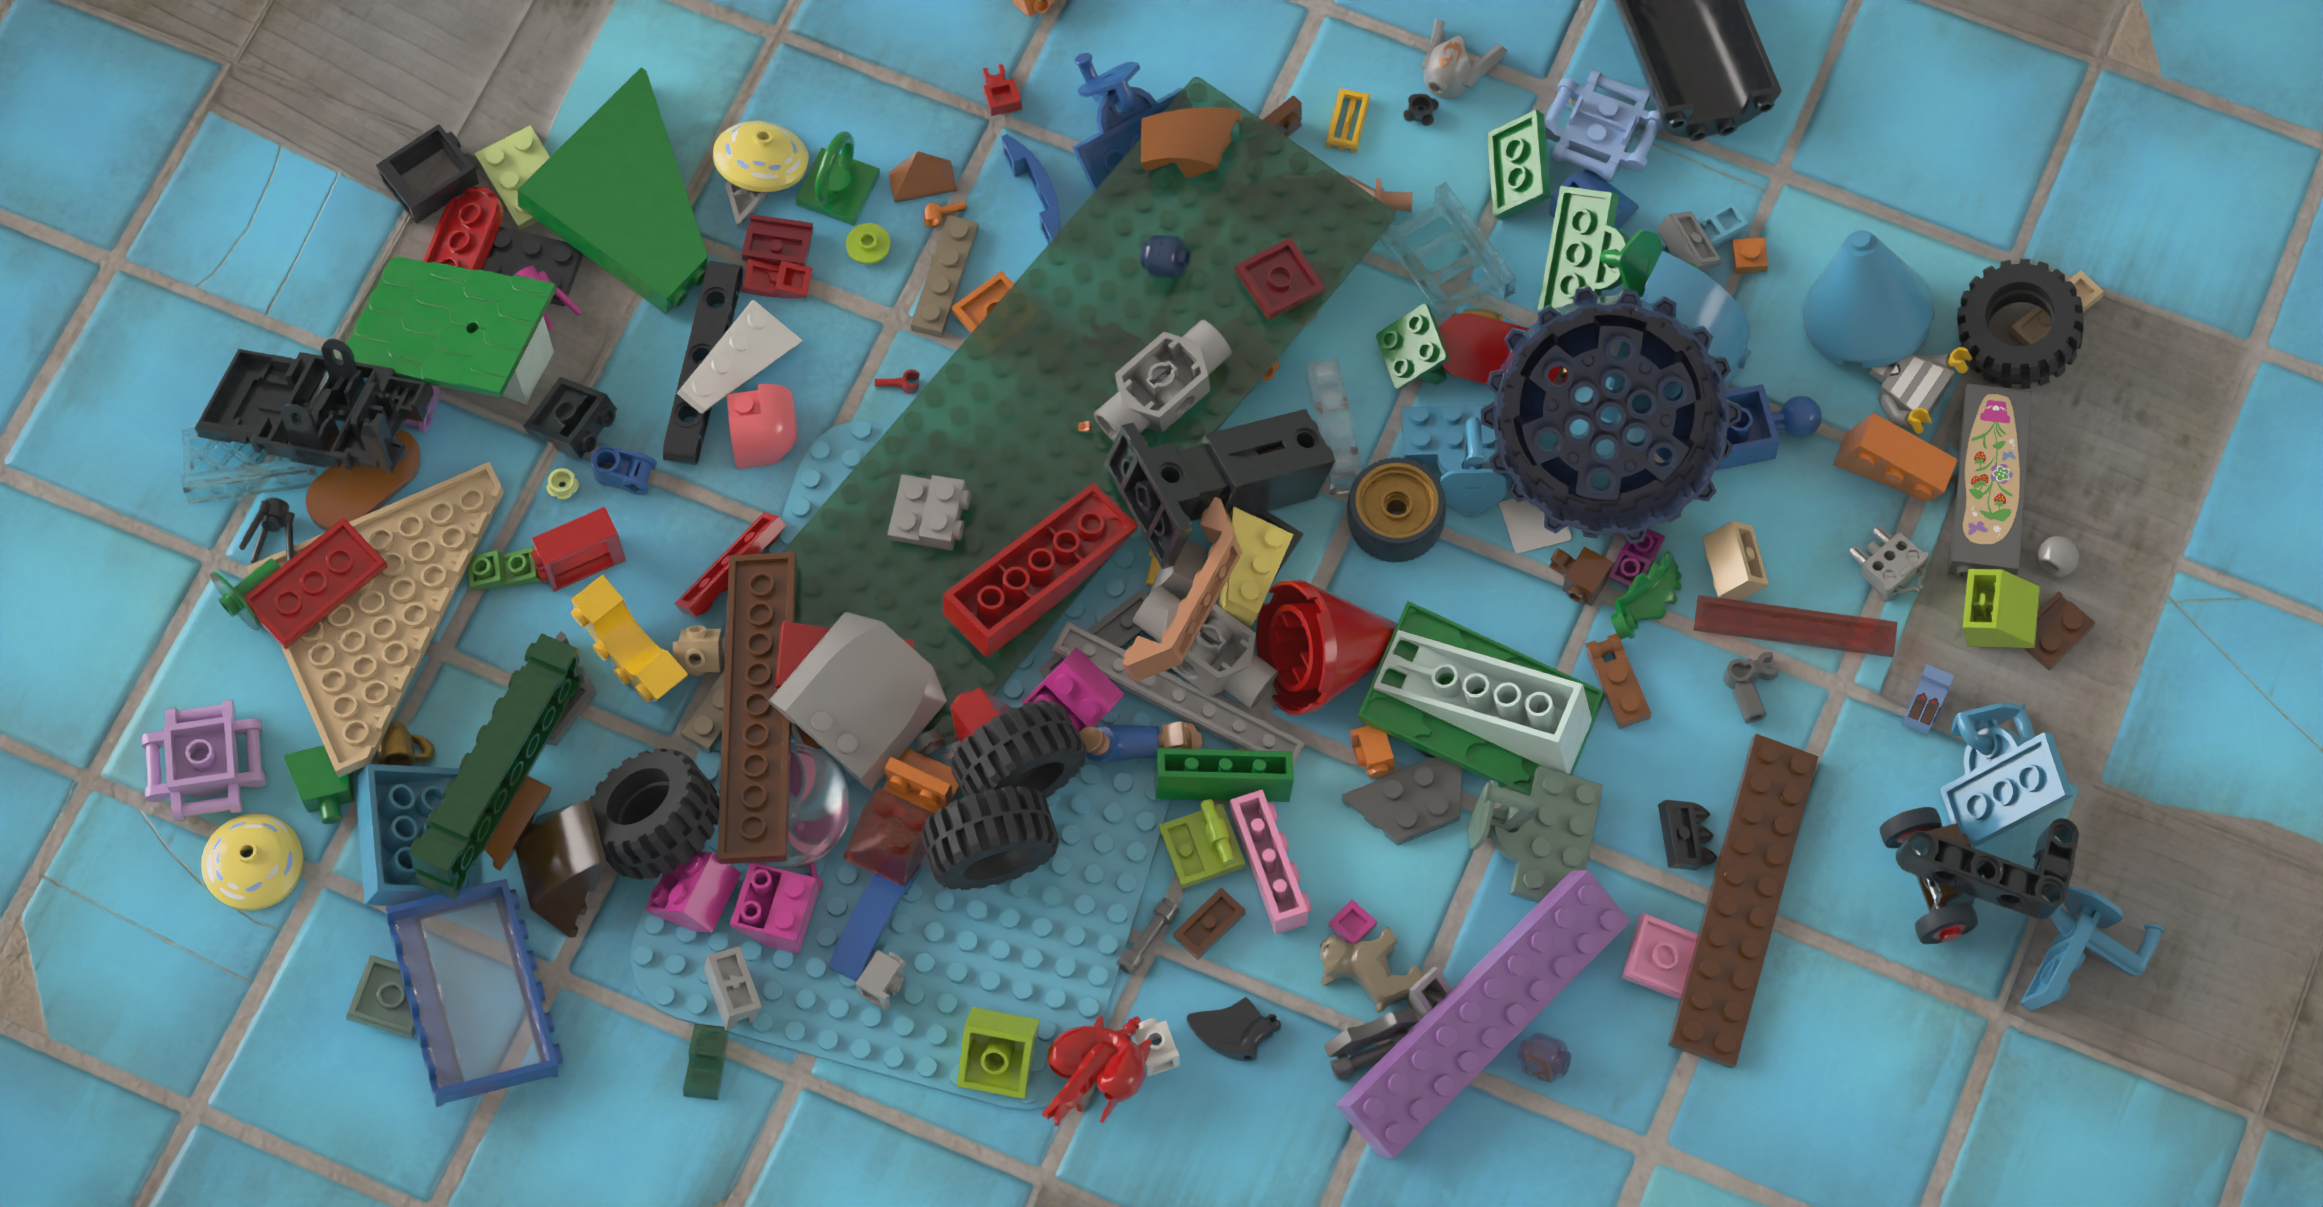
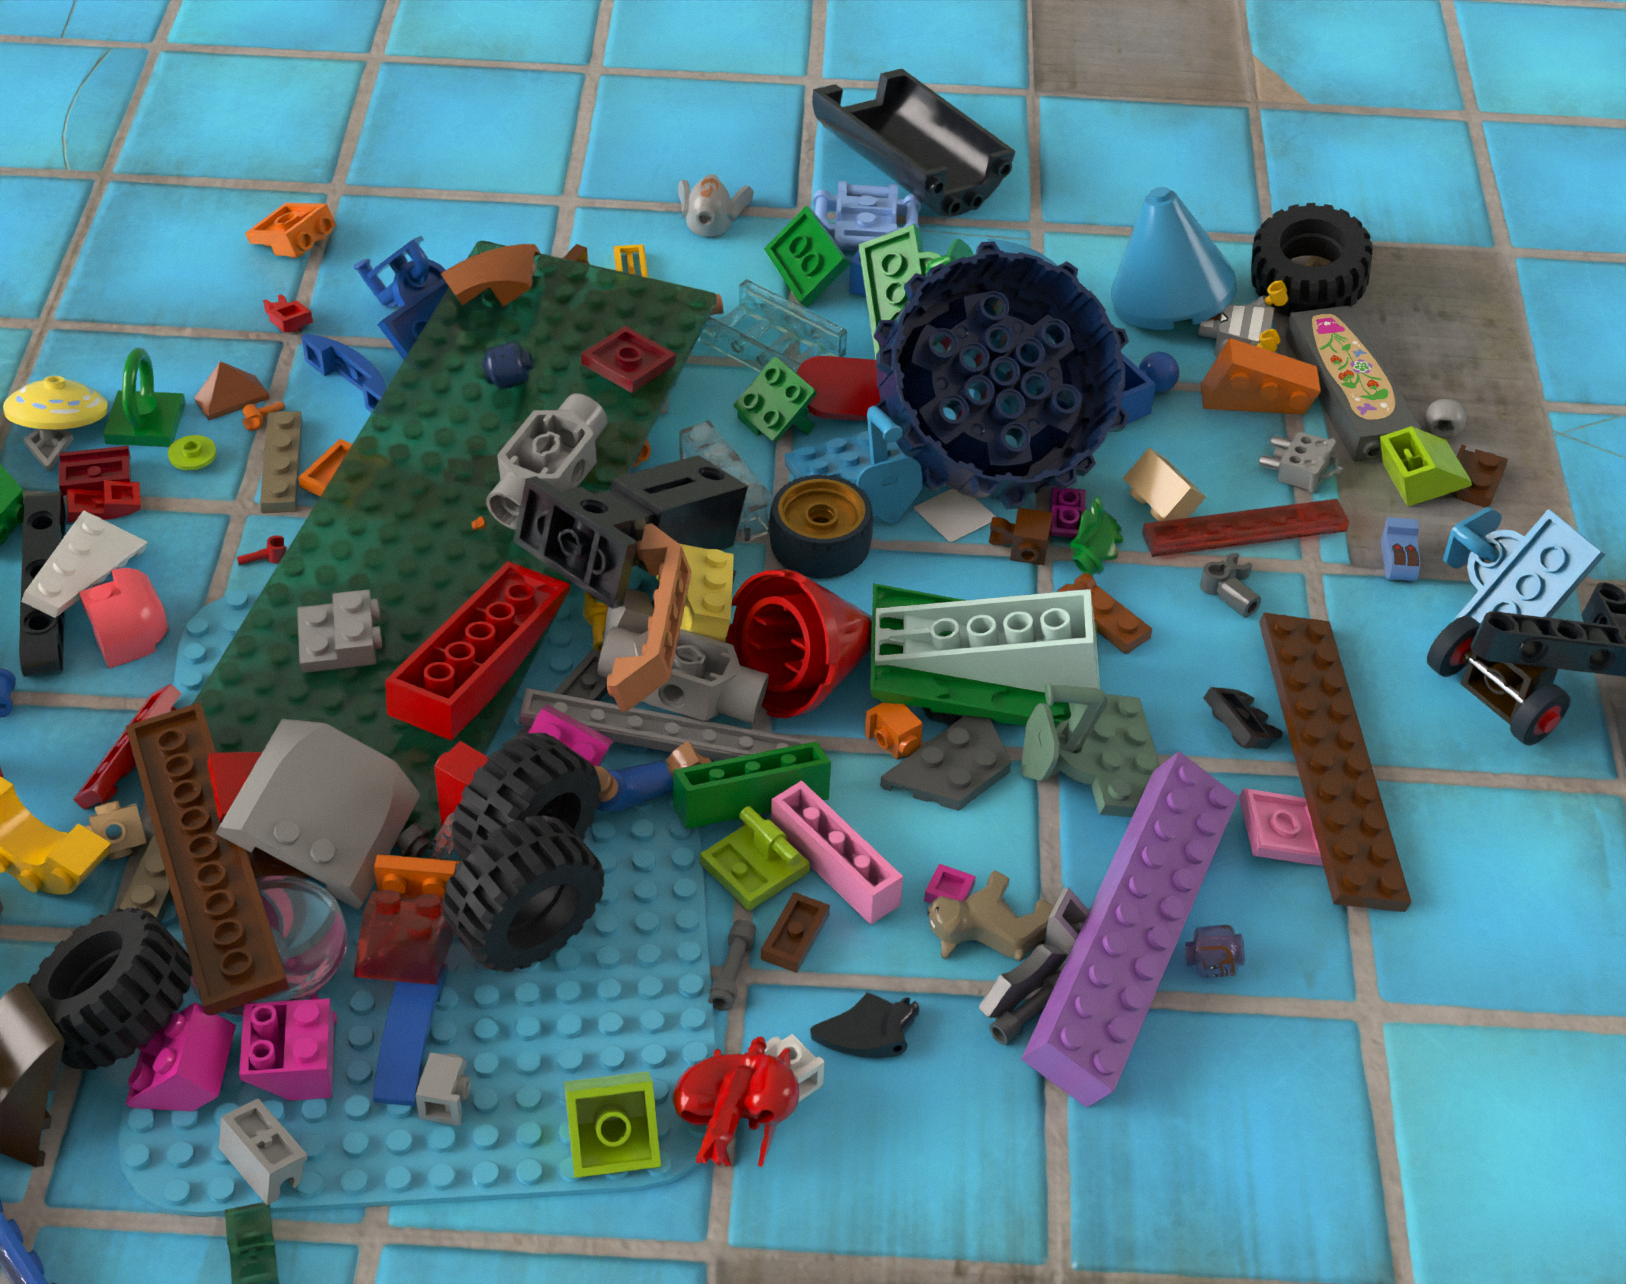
camera: 25 degrees left, 20 degrees down
(1421, 101) = (695, 245): black plate -> none

